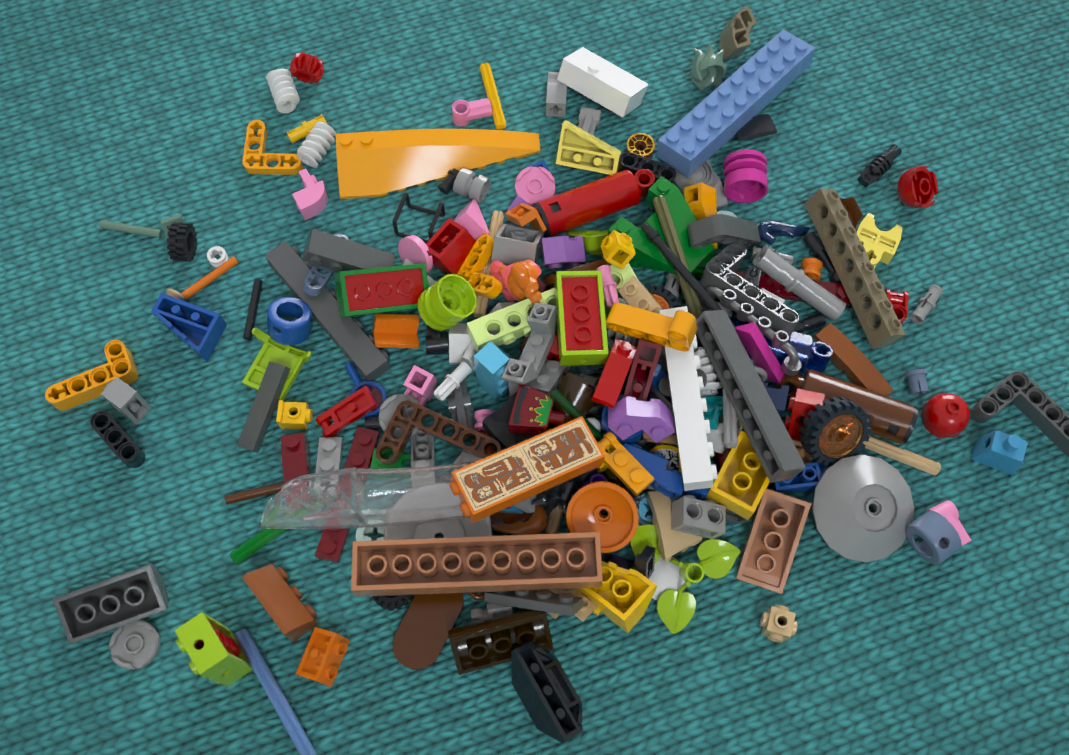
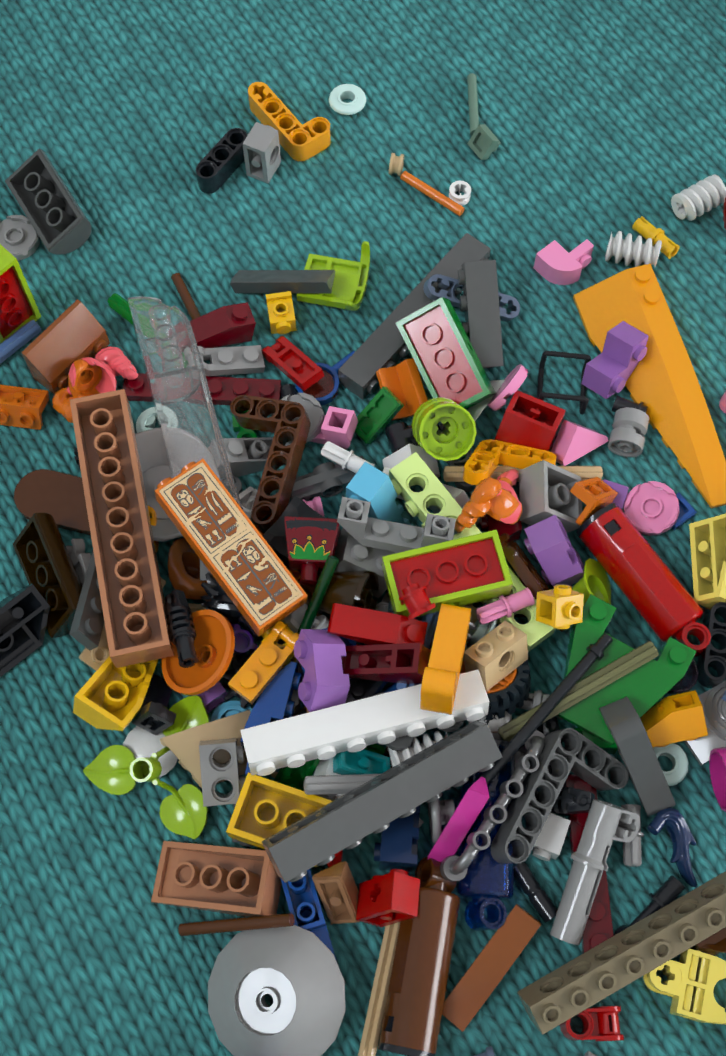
camera: 80 degrees right, 0 degrees up
(82, 319) = (347, 91): none -> light aqua piece
(182, 242) = (462, 151): black tyre -> none
(190, 323) = (364, 187): blue wedge -> none
(253, 307) = (405, 243): black bar -> none
(260, 156) = (604, 198): light orange beam -> none
(292, 331) = (381, 290): blue piece -> none
(322, 583) = (92, 377): none -> hair
(412, 178) = (620, 355): none -> medium lavender brick
(412, 352) = (377, 415): none -> green plate
(581, 524) = (181, 627): none -> black hinge
(607, 335) = (416, 600): none -> red brick
(771, 627) = (115, 903): tan brick -> none
(812, 268) = (623, 892): orange wheel -> none
(812, 527) = (236, 924): none -> reddish brown bar
(835, 430) = (366, 936): wheel -> none

